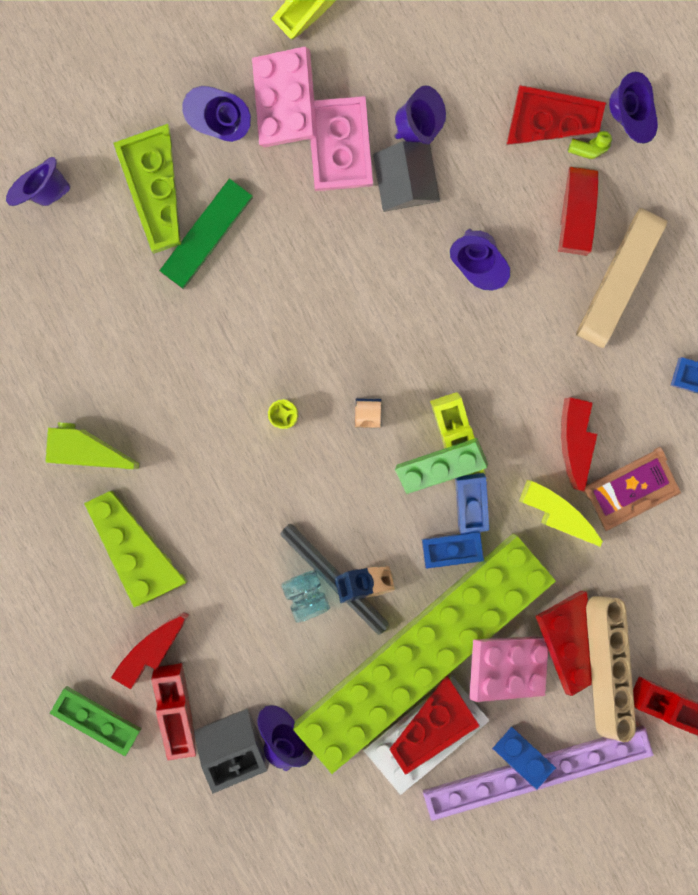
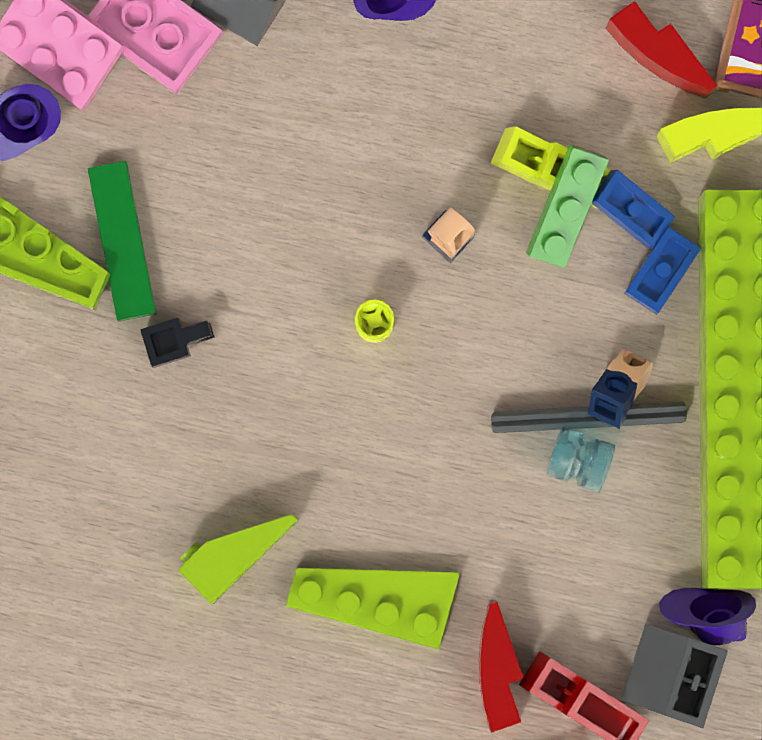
camera: 50 degrees left, 5 degrees down
(174, 310) = (170, 342): none -> black plate

